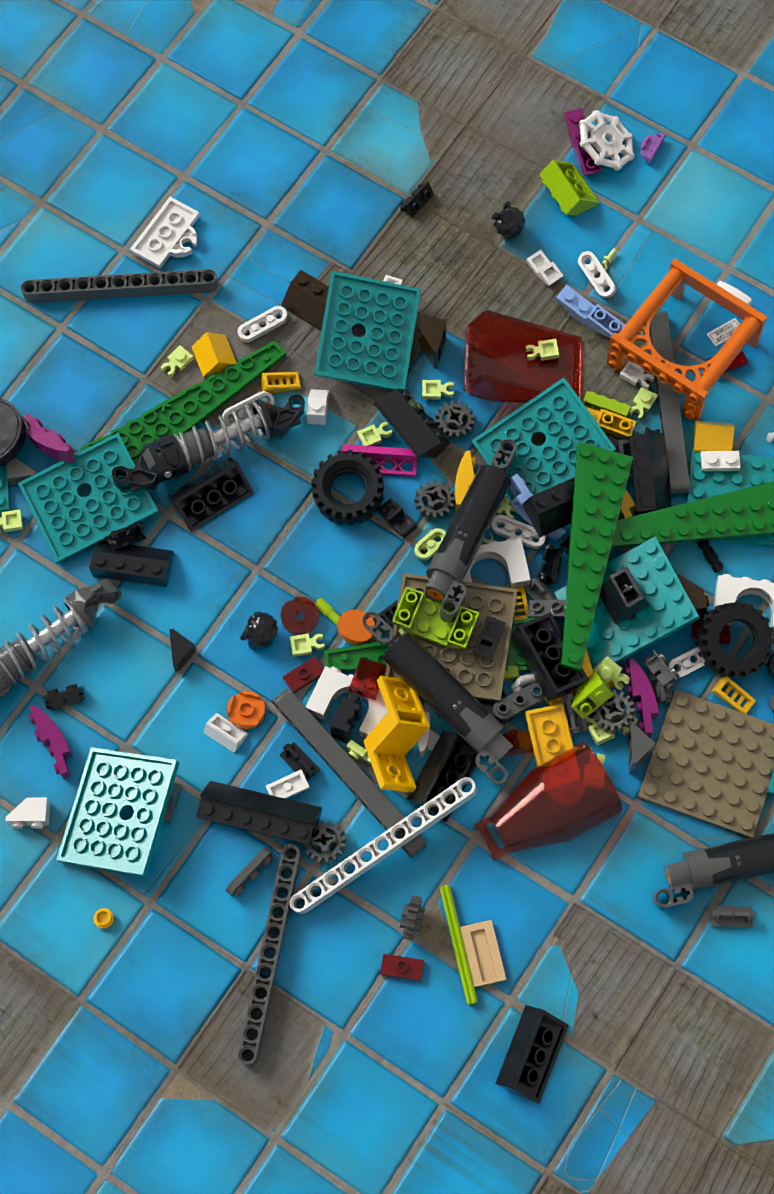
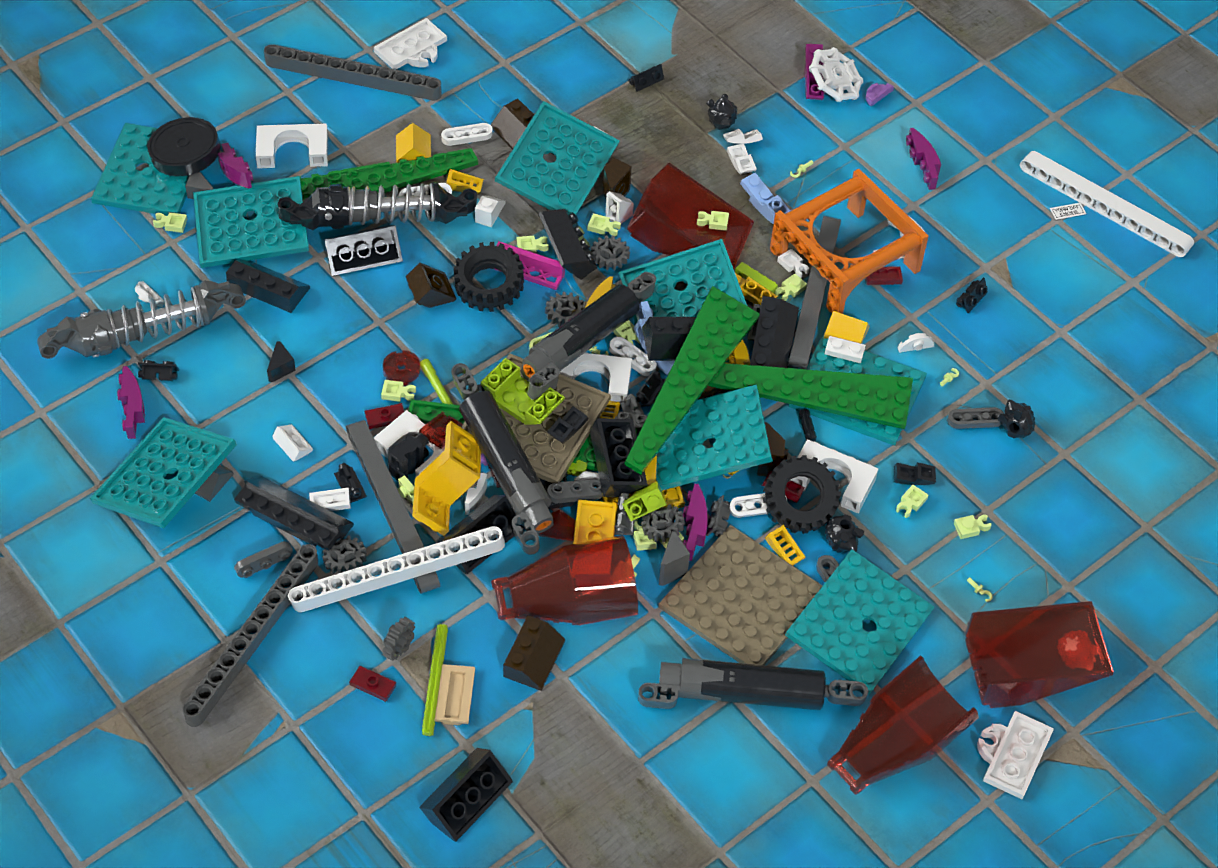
camera: 10 degrees right, 15 degrees down
(18, 613) = (145, 294): none -> white plate
(31, 812) = (84, 454): white slope -> none
(103, 918) = (111, 559): yellow plate -> none
(109, 375) = (271, 137): none -> white arch
(123, 537) = (264, 258): black hinge -> none
(177, 359) = (379, 141): yellowish green plate -> none
(246, 710) = (319, 429): orange tile -> none
(260, 630) = (359, 366): black animal -> none
(293, 515) = (430, 286): none -> dark brown slope
(352, 628) = (445, 390): orange tile -> none
(396, 518) = (524, 316): black slope -> none
(445, 366) = (618, 207): none -> white slope
(533, 244) = (738, 137): none -> white slope
(541, 888) = (533, 653): none -> dark brown slope
(568, 187) = (788, 103): lime slope -> none
(592, 270) = (787, 176): white plate -> none
(611, 671) = (671, 488): yellowish green plate -> none
(622, 595) = (706, 421): black slope -> none
(658, 663) = (726, 507): dark grey hinge -> none
(724, 208) = (925, 155): none -> magenta slope
(731, 916) = (710, 733): dark grey hinge -> none

